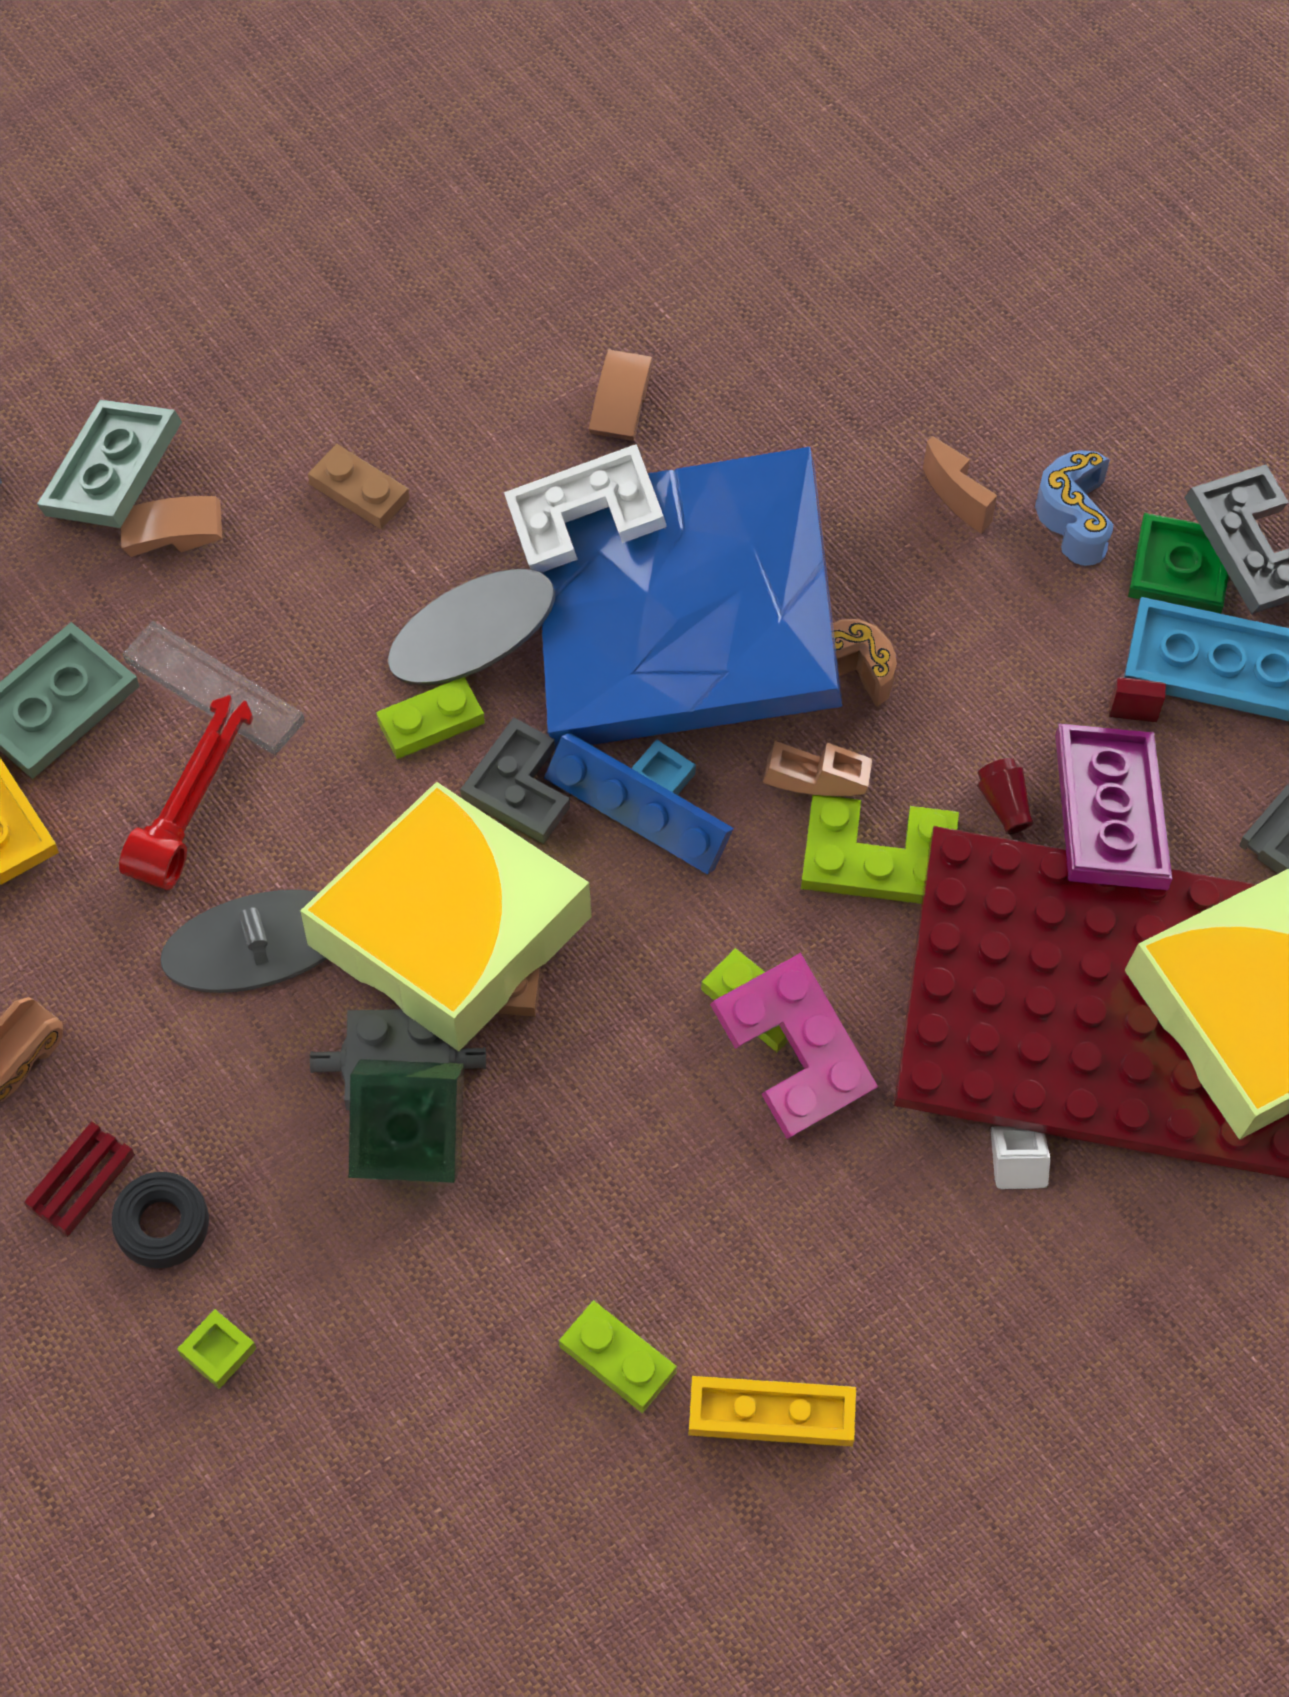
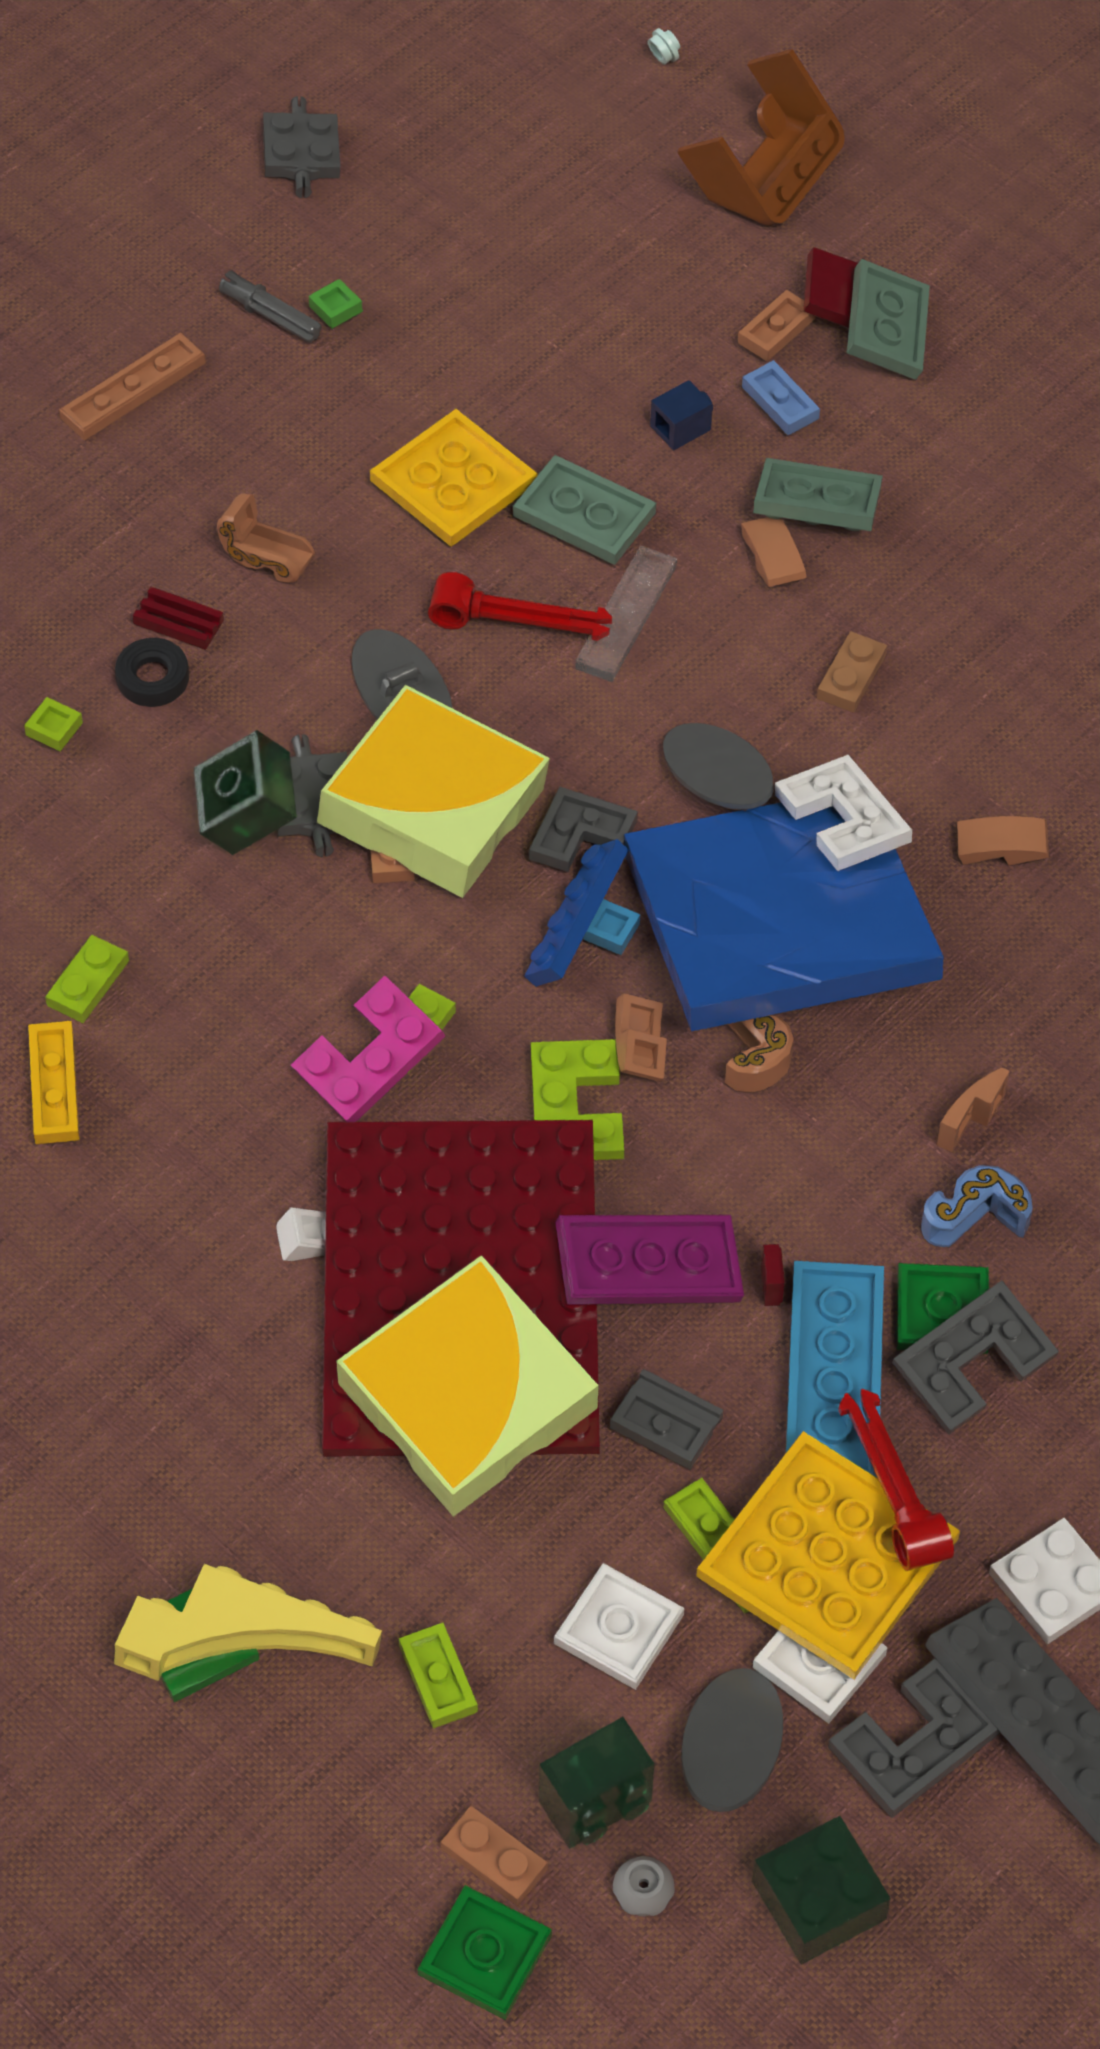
camera: 80 degrees right, 5 degrees down
(430, 717) = (632, 762): lime plate -> none
(1006, 793) = (649, 1184): dark red cone -> none

